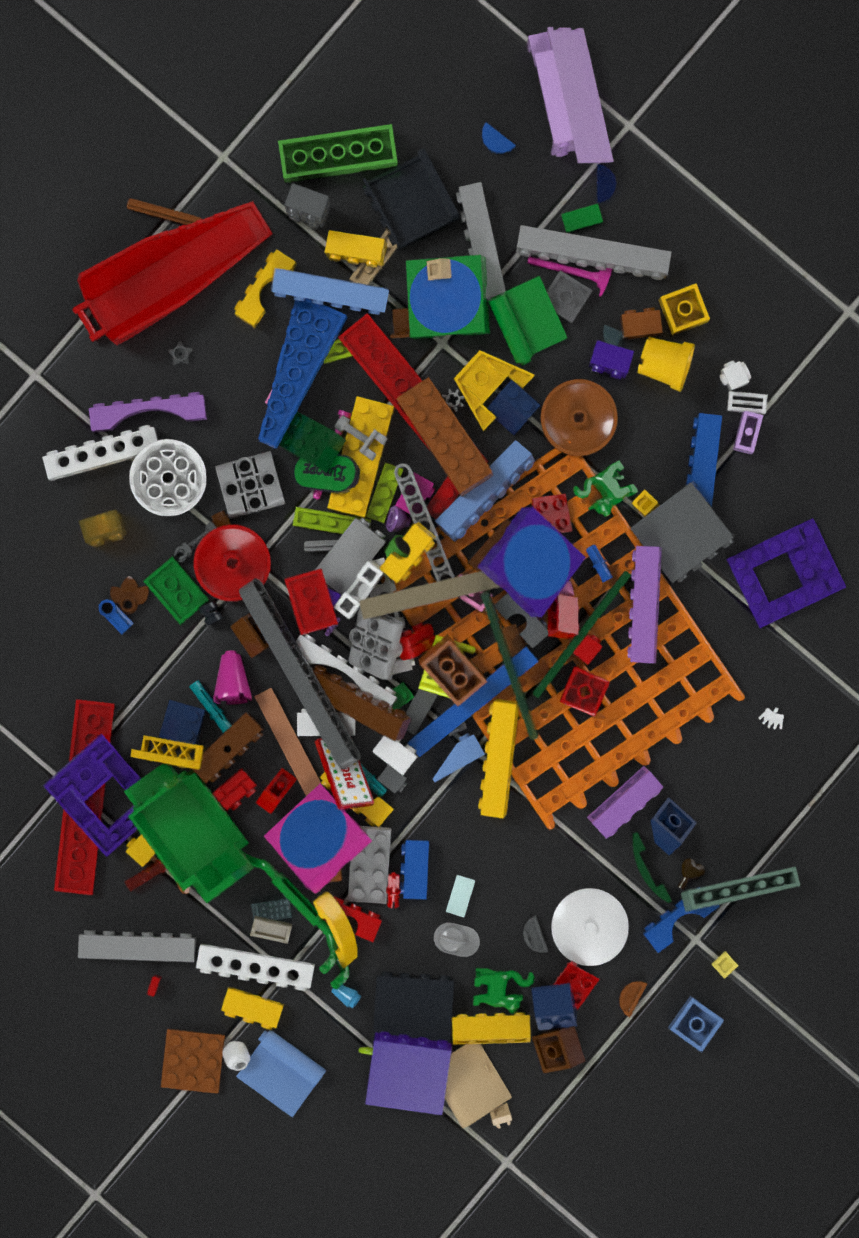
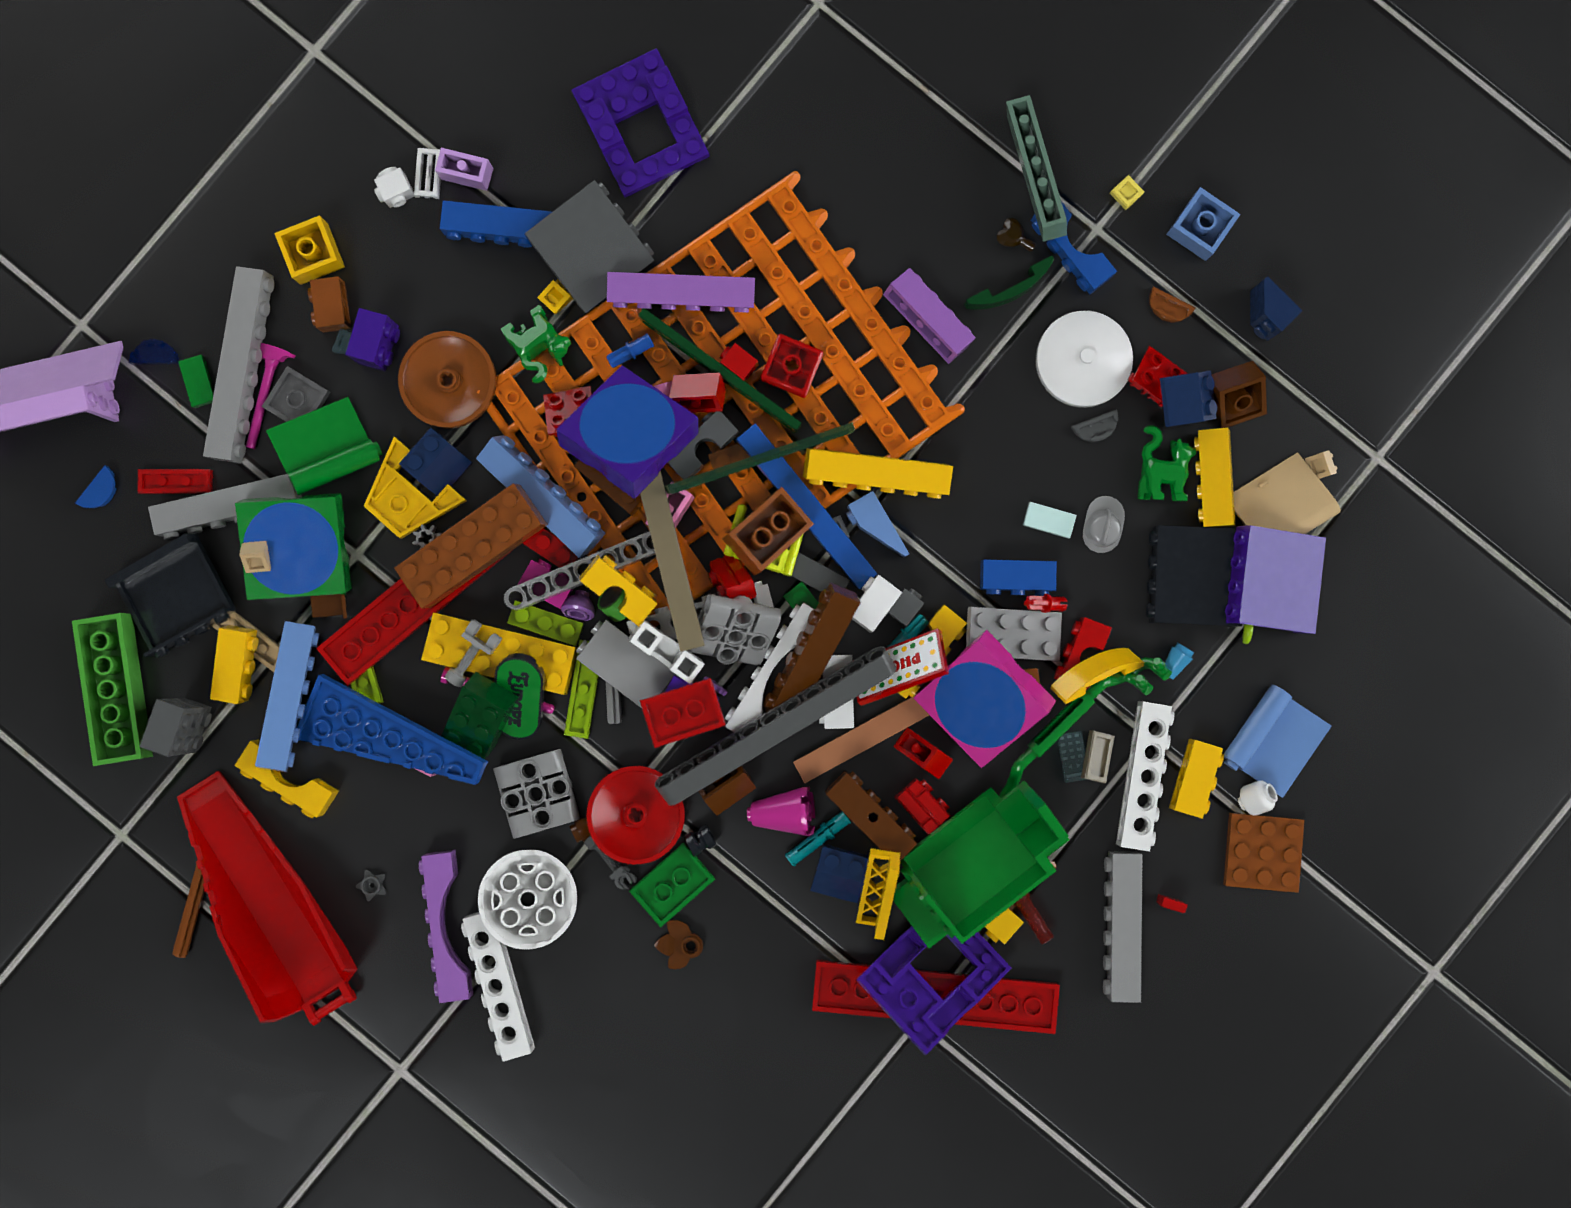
camera: 90 degrees left, 0 degrees up
(102, 528) = (593, 981): clear yellow brick -> none
(116, 617) = (706, 960): blue piece -> none
(502, 200) = (175, 481): none -> red tile
(624, 1076) = (1270, 309): none -> dark blue slope
(666, 361) = (374, 269): yellow piece -> none
(671, 826) = (959, 258): dark blue slope -> none
(773, 717) = (821, 138): white piece -> none

